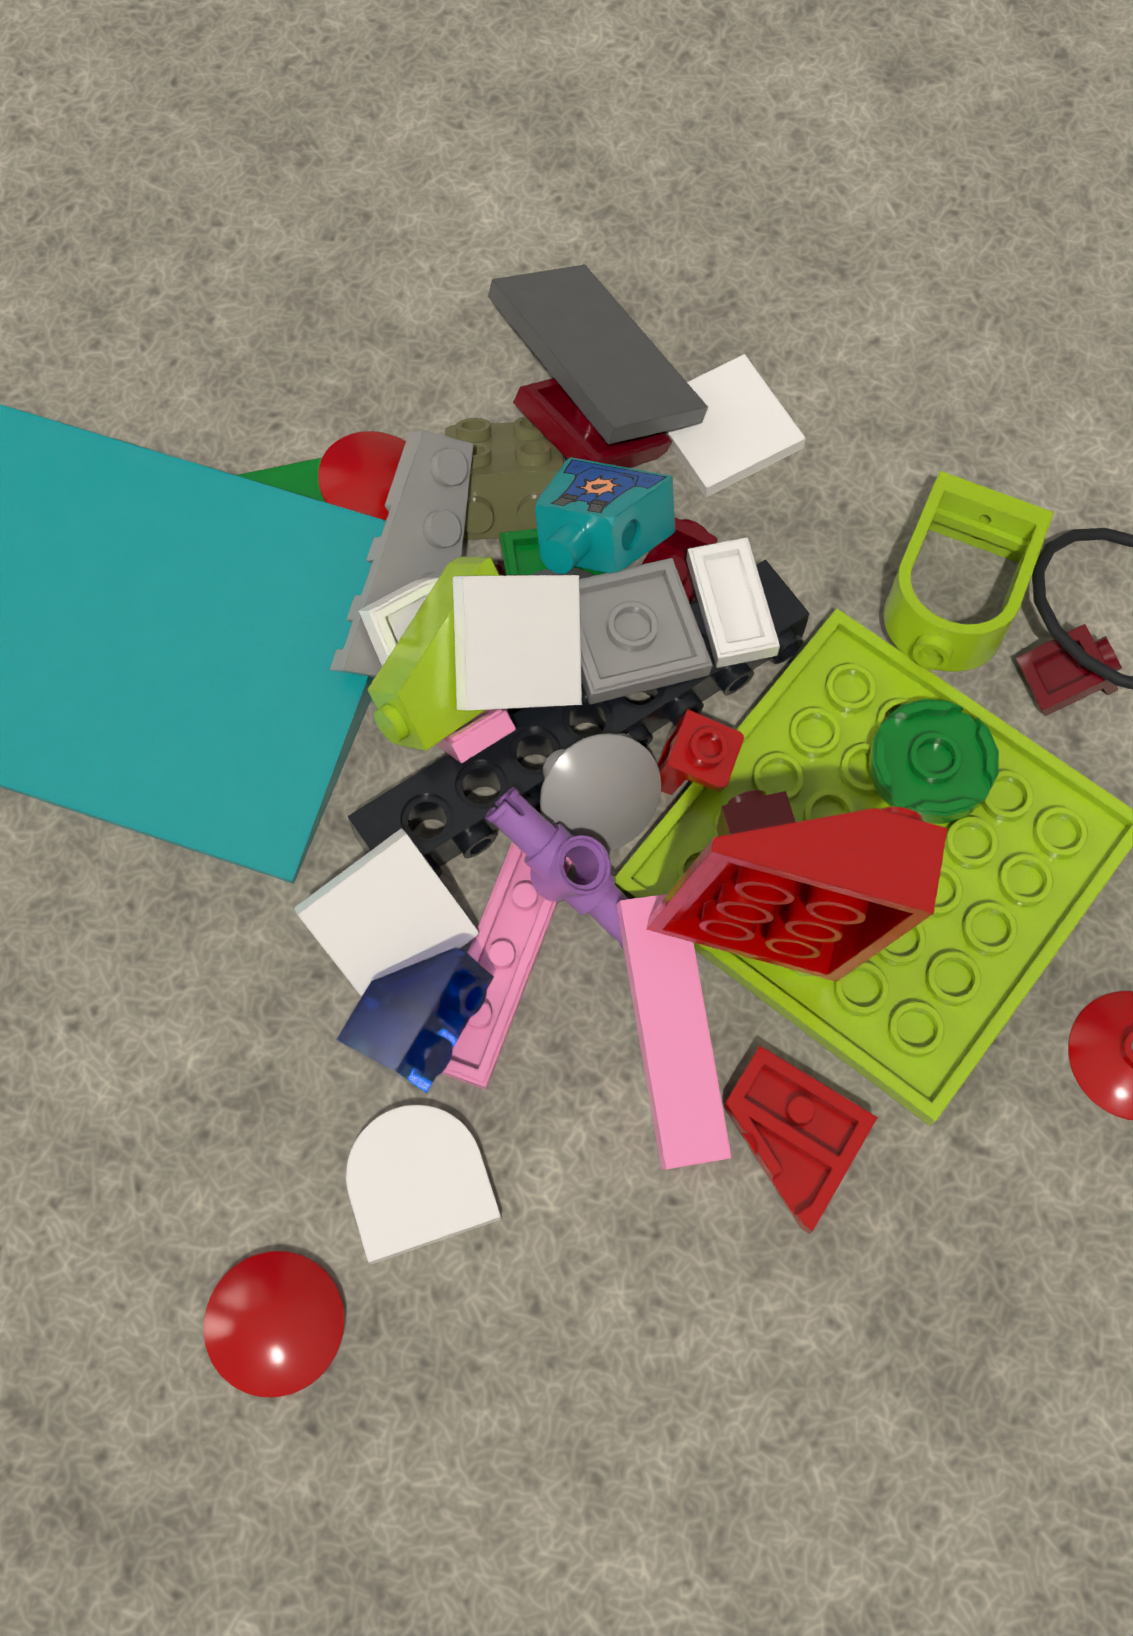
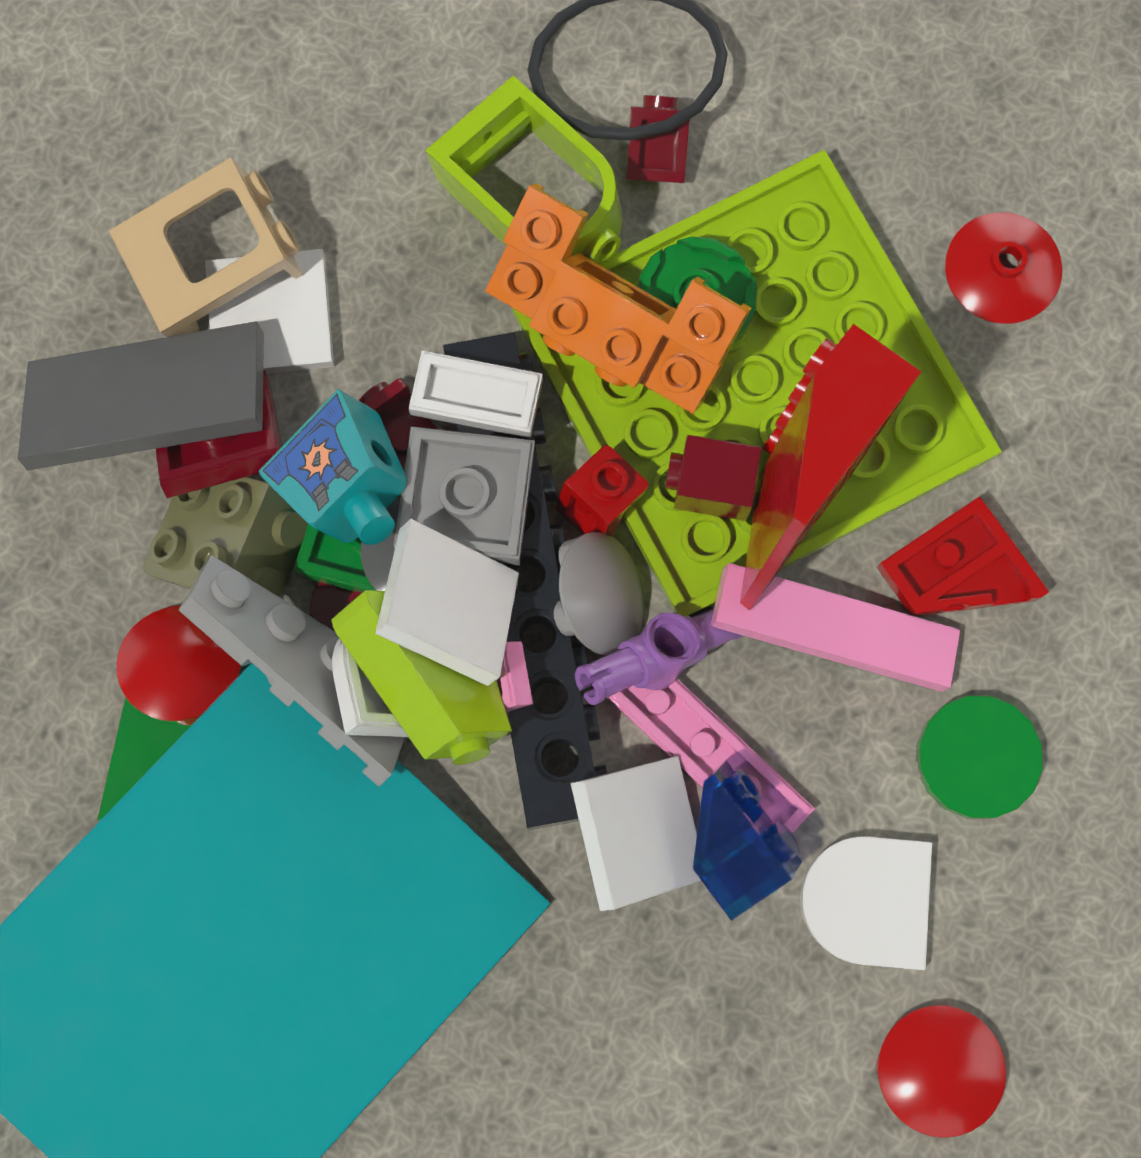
camera: 65 degrees left, 10 degrees up
(610, 1233) = (979, 757): none -> green tile
(694, 336) = (158, 272): none -> tan window
(865, 677) = (607, 318): none -> orange bracket

